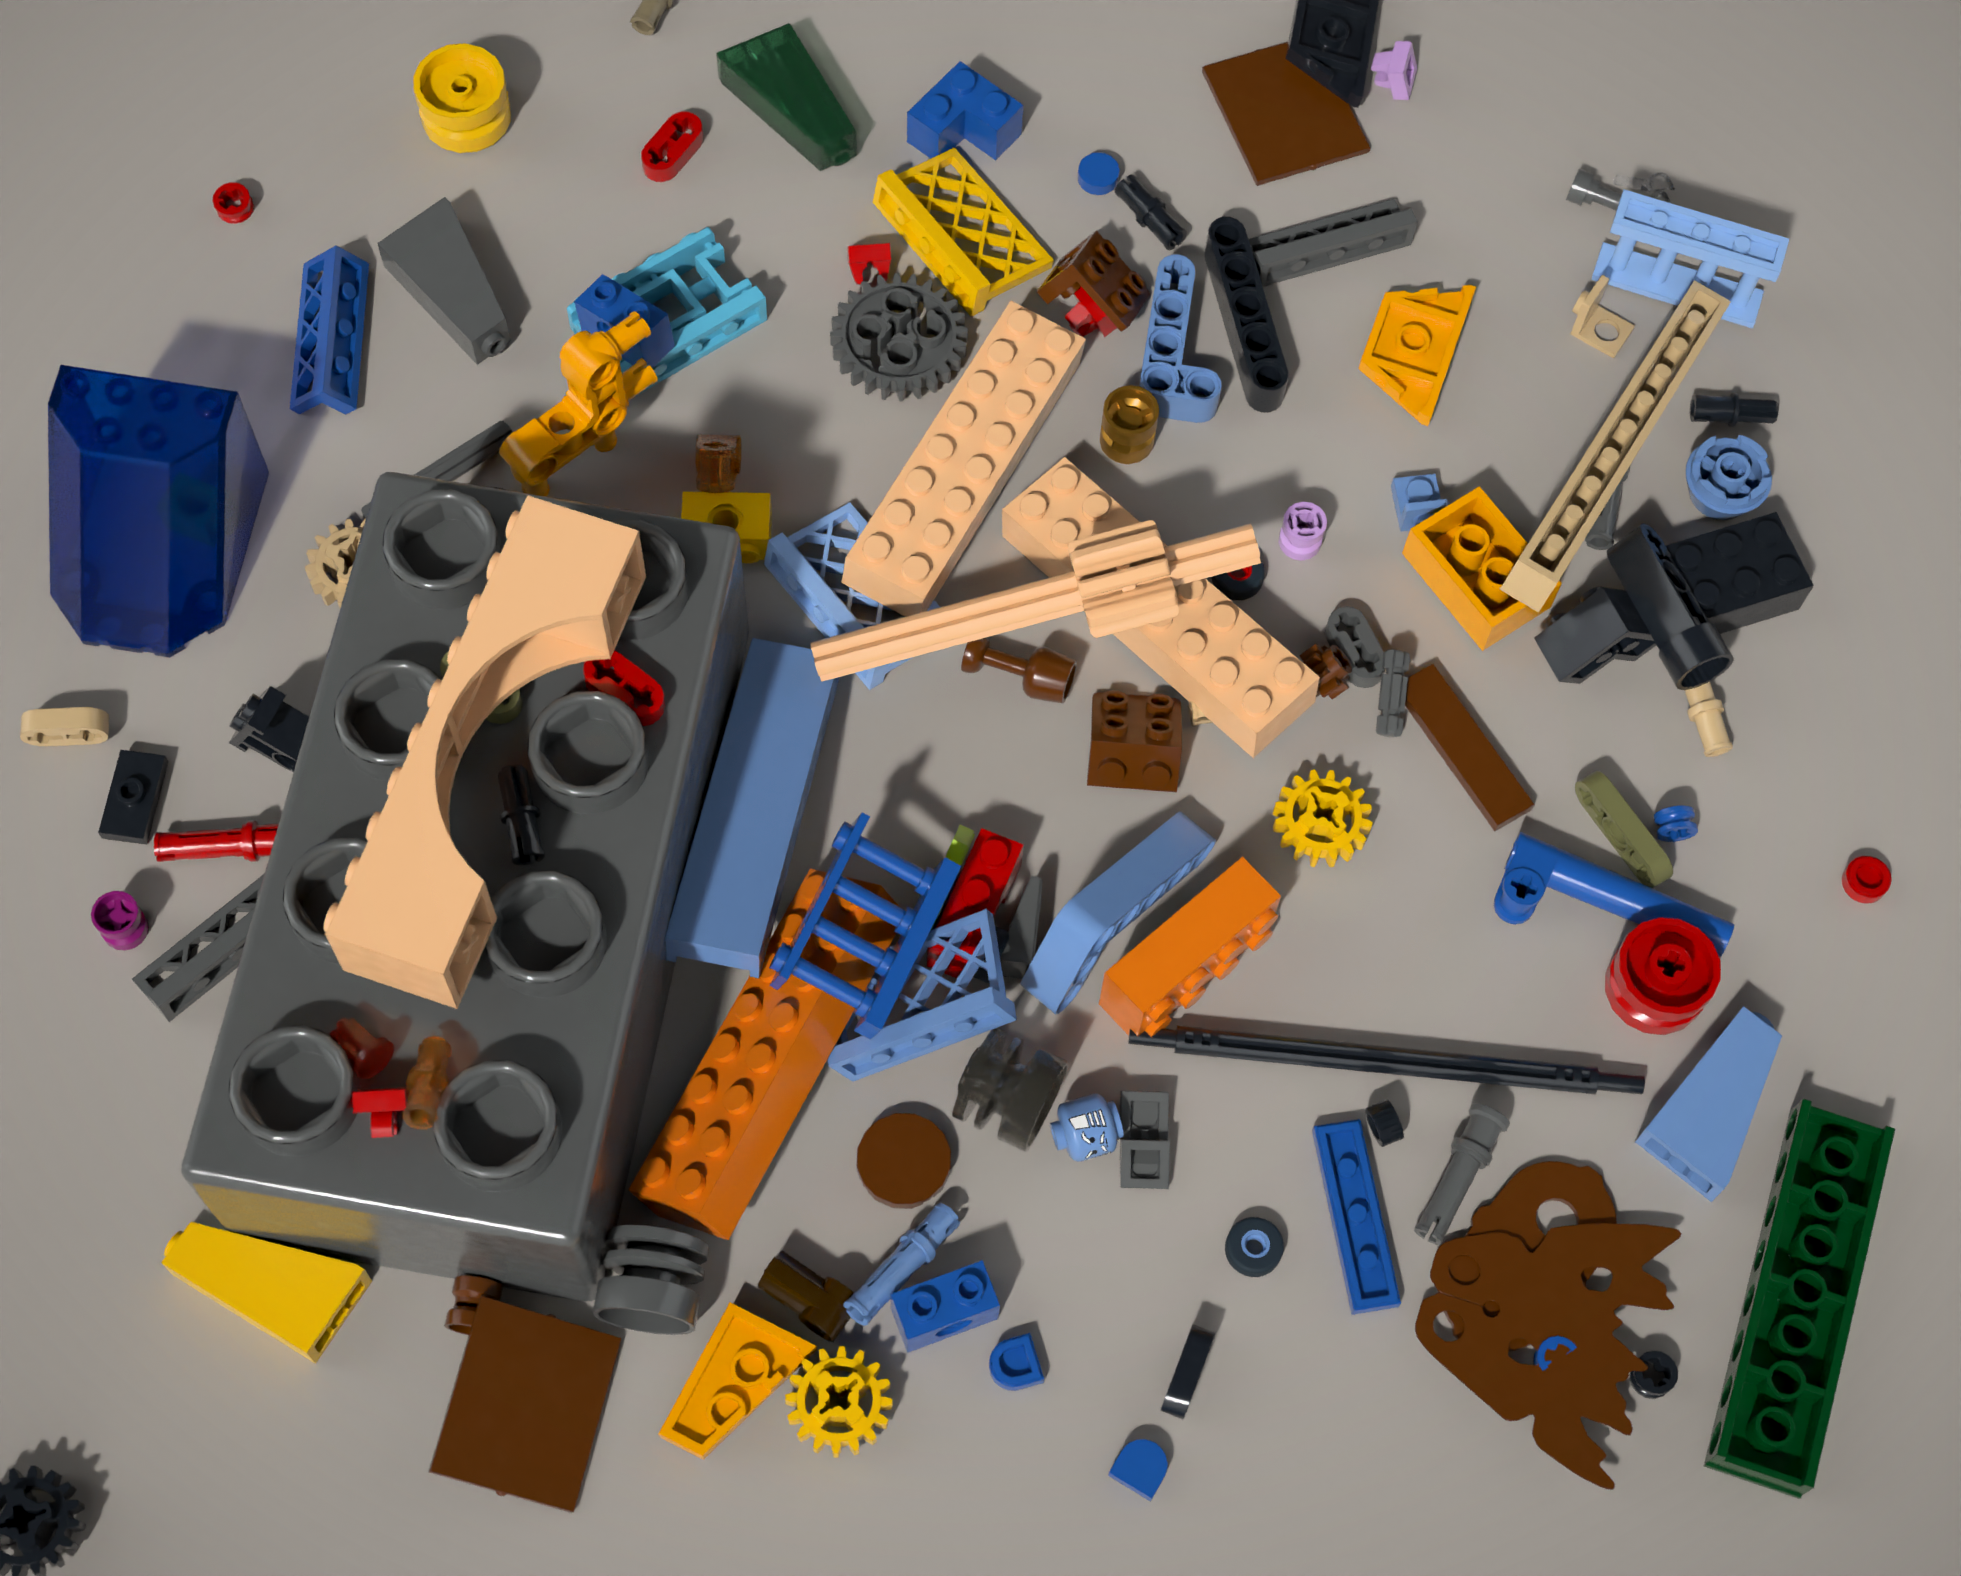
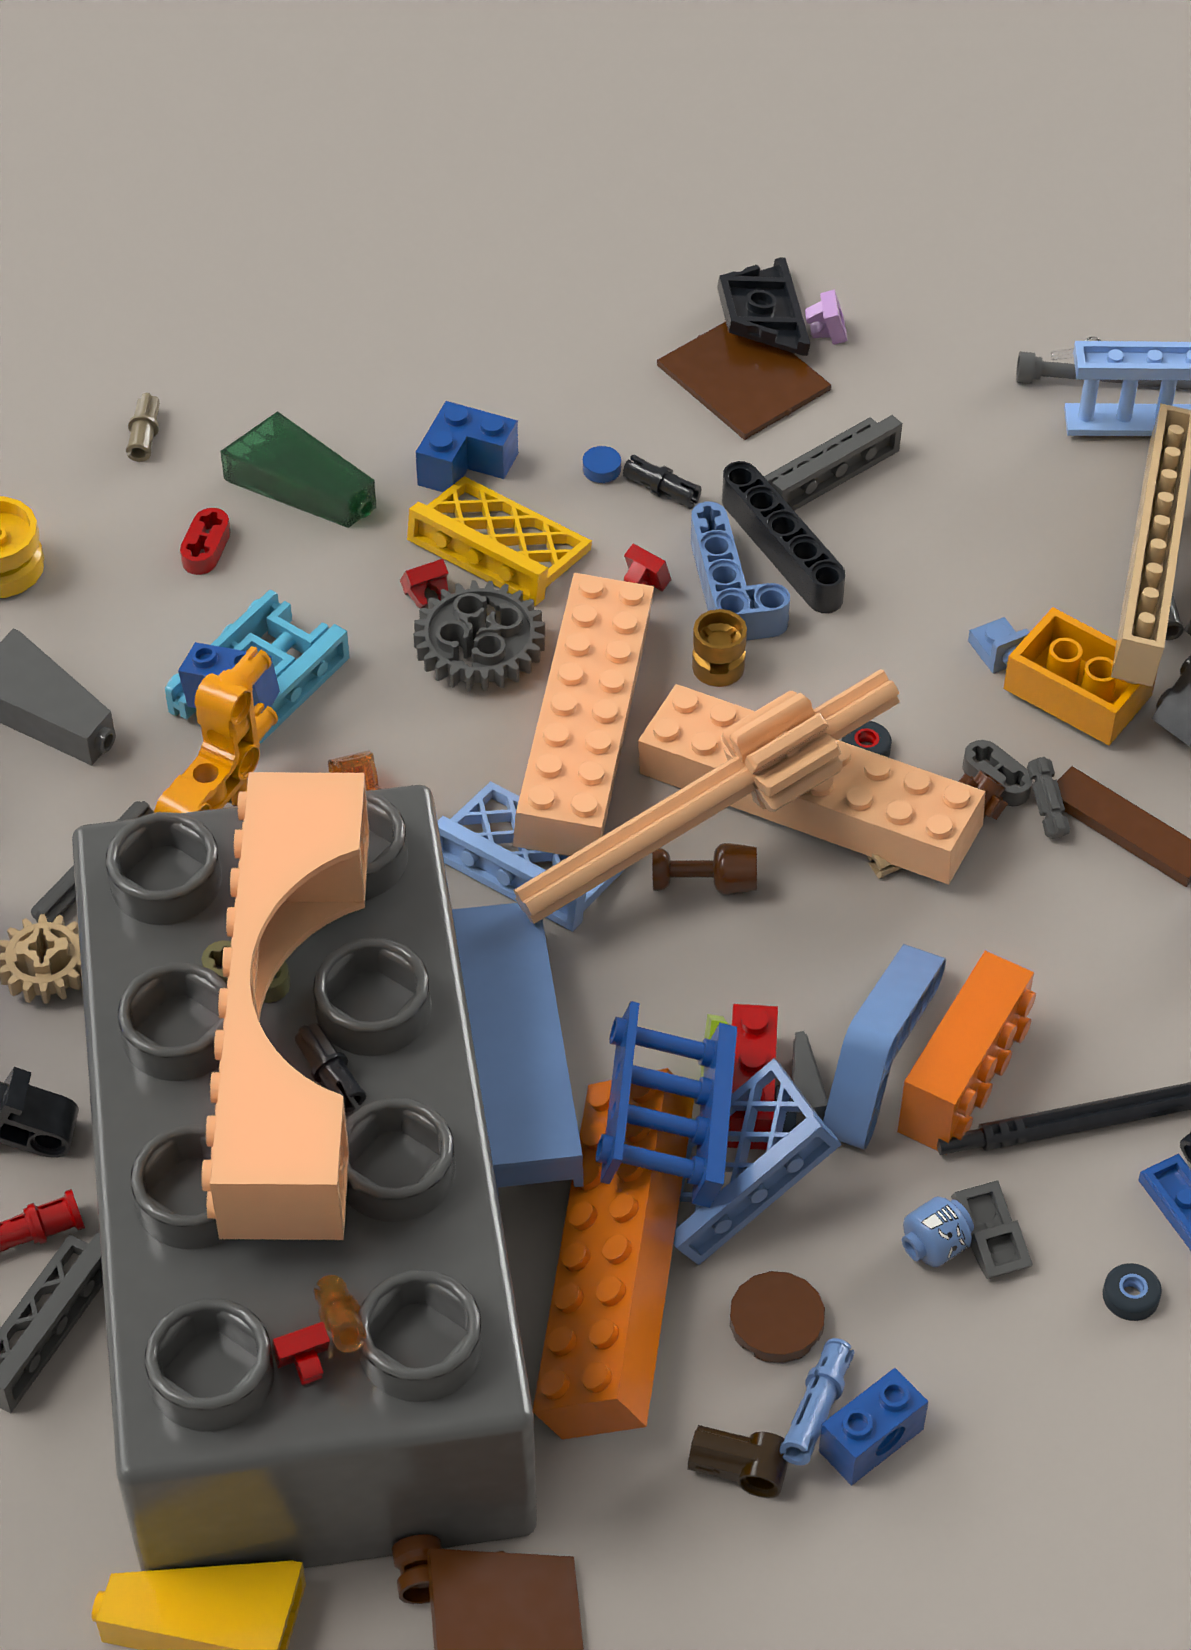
camera: 15 degrees left, 15 degrees down
(369, 1053) = (270, 1309): clear red piece -> none
(630, 679) = (382, 926): red beam -> none
(651, 1272) = (588, 1485): dark grey wheel -> none
(732, 1379) = (697, 1557): light orange wing -> none
(853, 1417) = (823, 1558): yellow gear -> none
(1009, 1088) = (854, 1215): clear smoke wheel -> none
(1015, 1364) = (958, 1461): blue tile -> none
(1102, 275) = (637, 525): reddish brown bracket -> none
(1135, 741) = (838, 903): reddish brown bracket -> none
(1140, 1467) = (1115, 1514): blue tile -> none
(1187, 1371) = (1122, 1414): black beam -> none
(1304, 540) = (914, 688): lavender wheel -> none
(1325, 800) = (1032, 915): yellow gear -> none
(1415, 345) = (941, 524): light orange wing -> none
(1591, 314) = (1082, 462): tan bracket -> none

